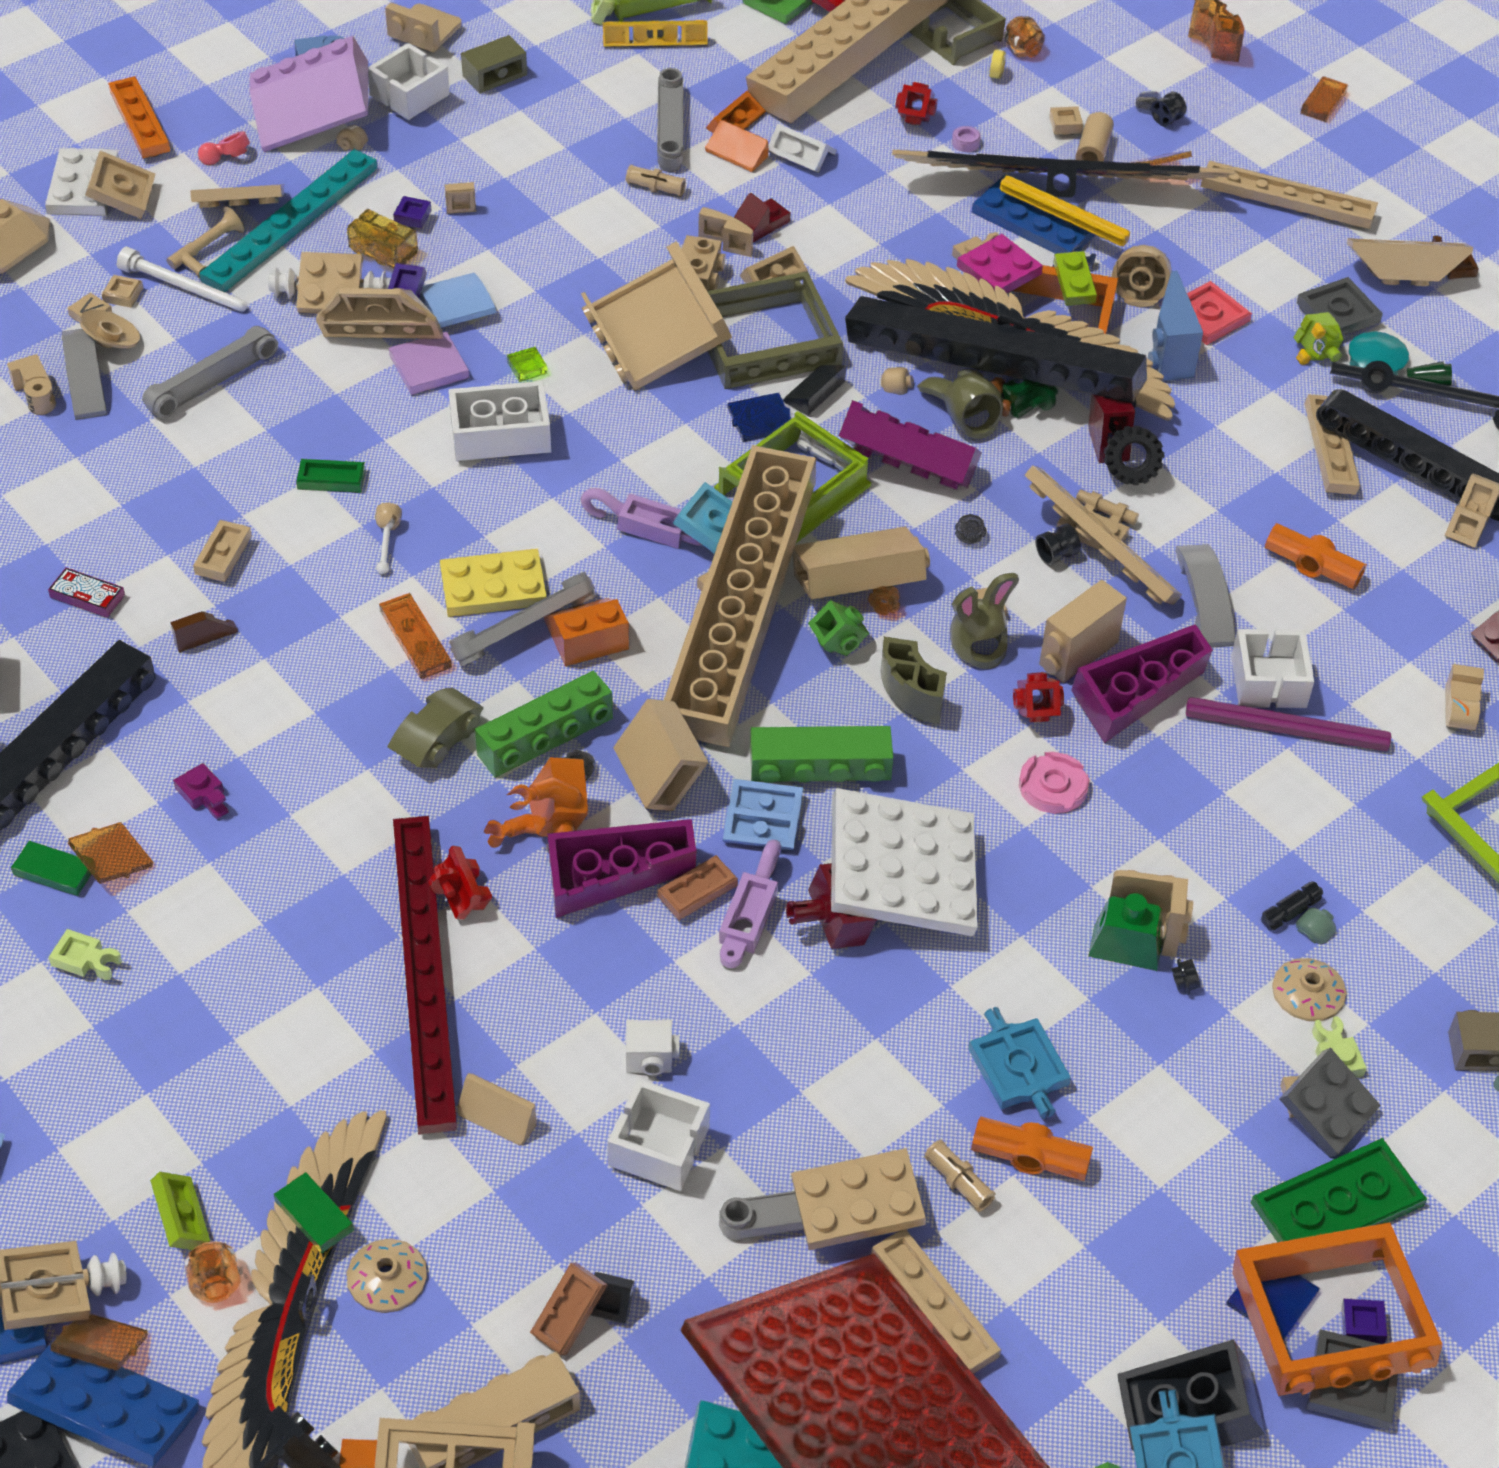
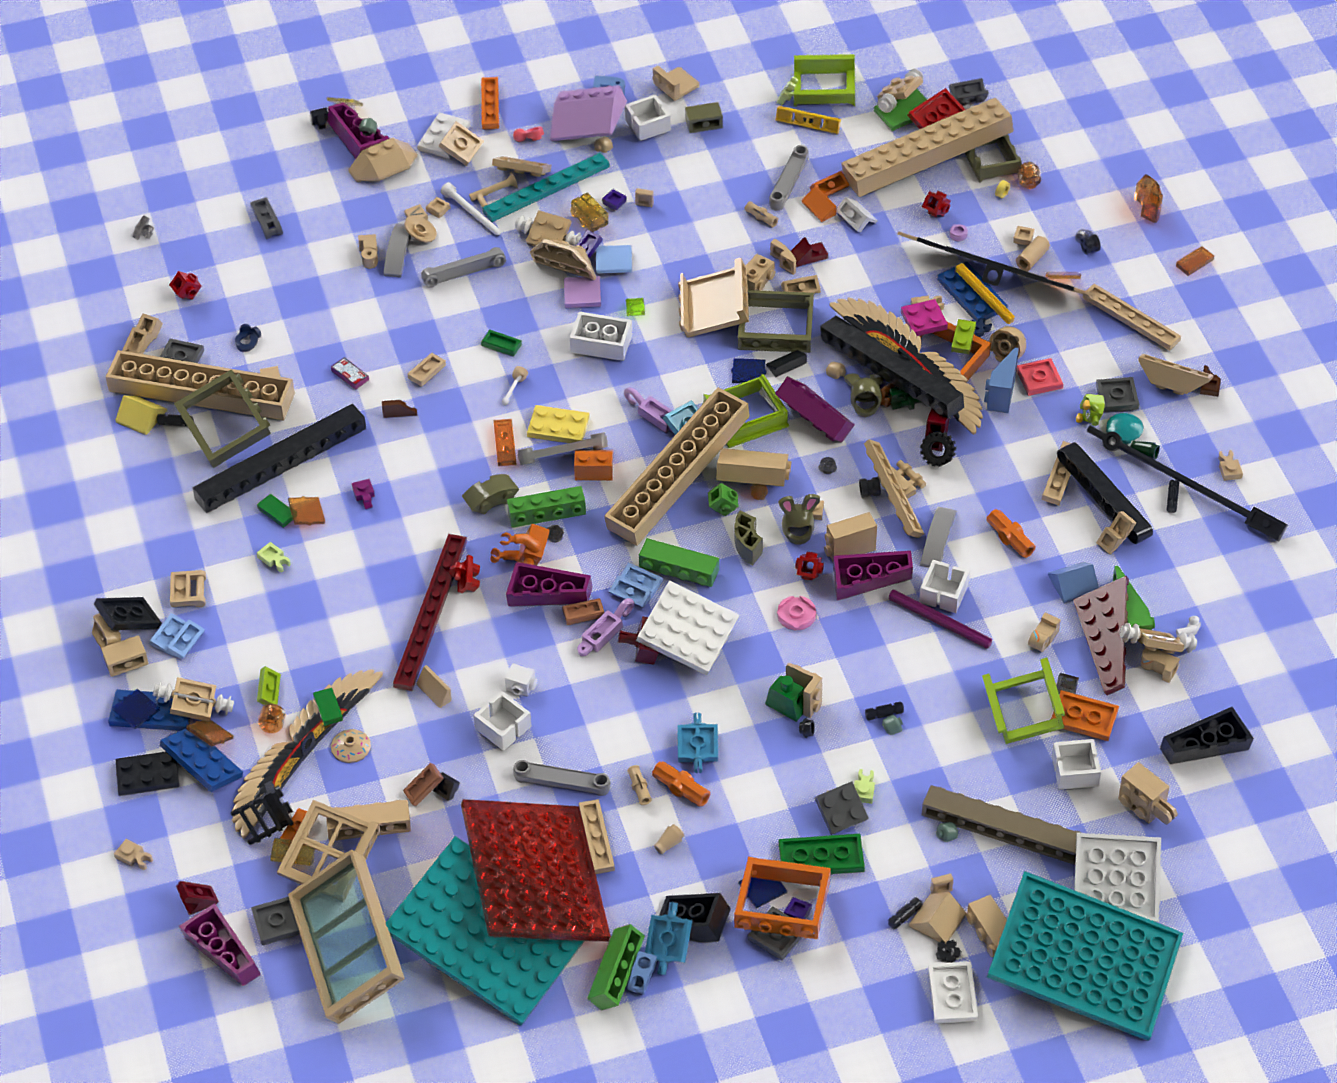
camera: 25 degrees right, 0 degrees up
(660, 755) = (593, 539): tan brick -> none
(858, 1199) = (581, 778): tan plate -> none
(1068, 1258) = (670, 838): none -> tan cone
(1305, 999) = (872, 759): tan dish -> none
(1454, 602) = (1074, 581): none -> medium blue slope

